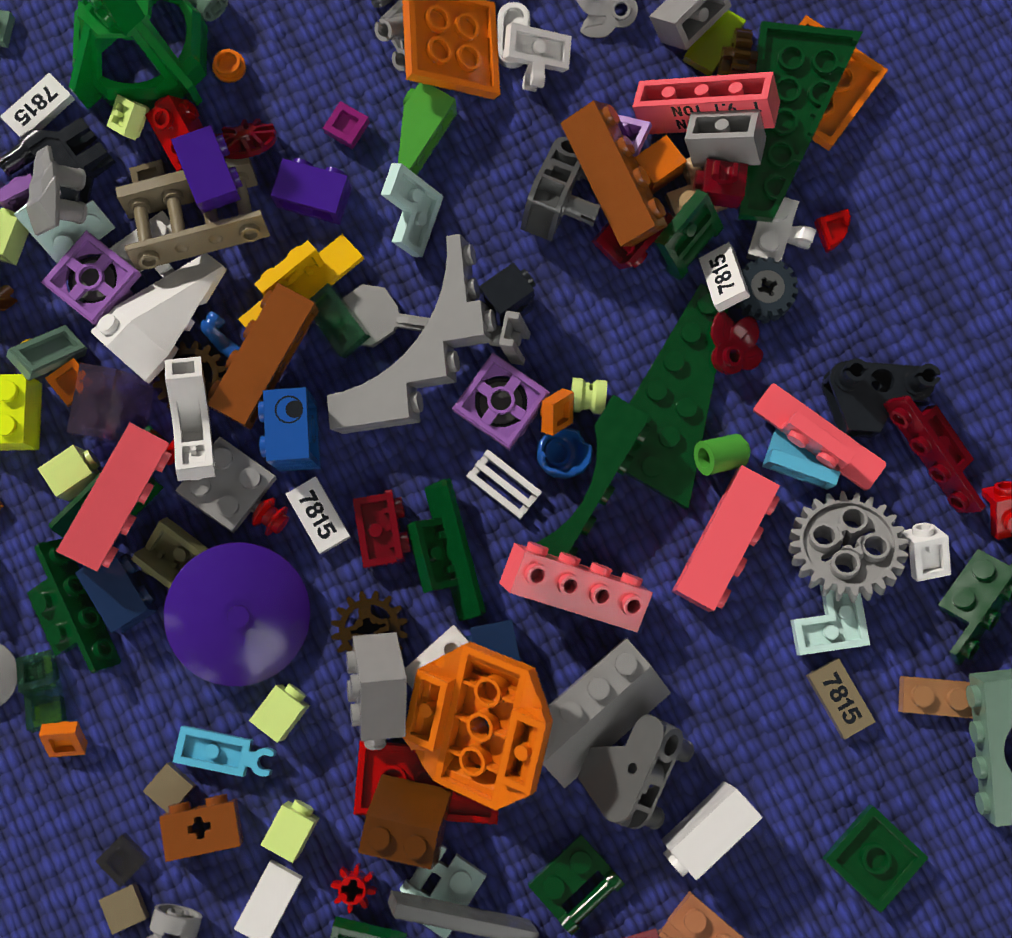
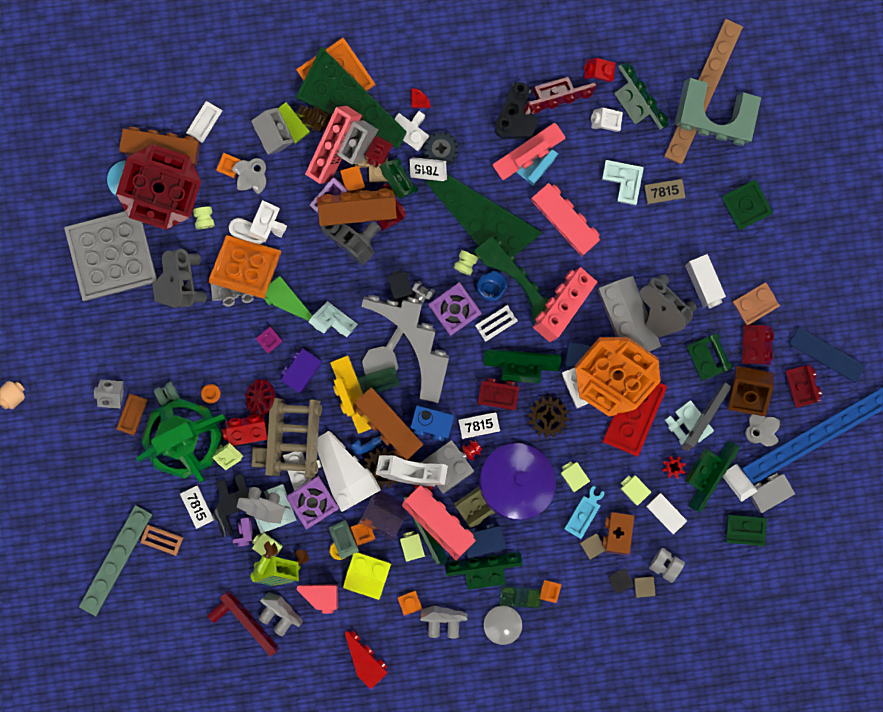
camera: 75 degrees left, 5 degrees up
(206, 169) = (278, 420): dark purple brick -> none
(377, 688) = (581, 420): light grey brick -> none
(406, 822) = (650, 429): reddish brown slope -> none
(557, 411) = (470, 282): orange plate -> none
(721, 454) = (521, 205): bright green brick -> none
(735, 344) = (463, 175): dark red plate -> none
(868, 570) = (607, 154): light grey gear -> none

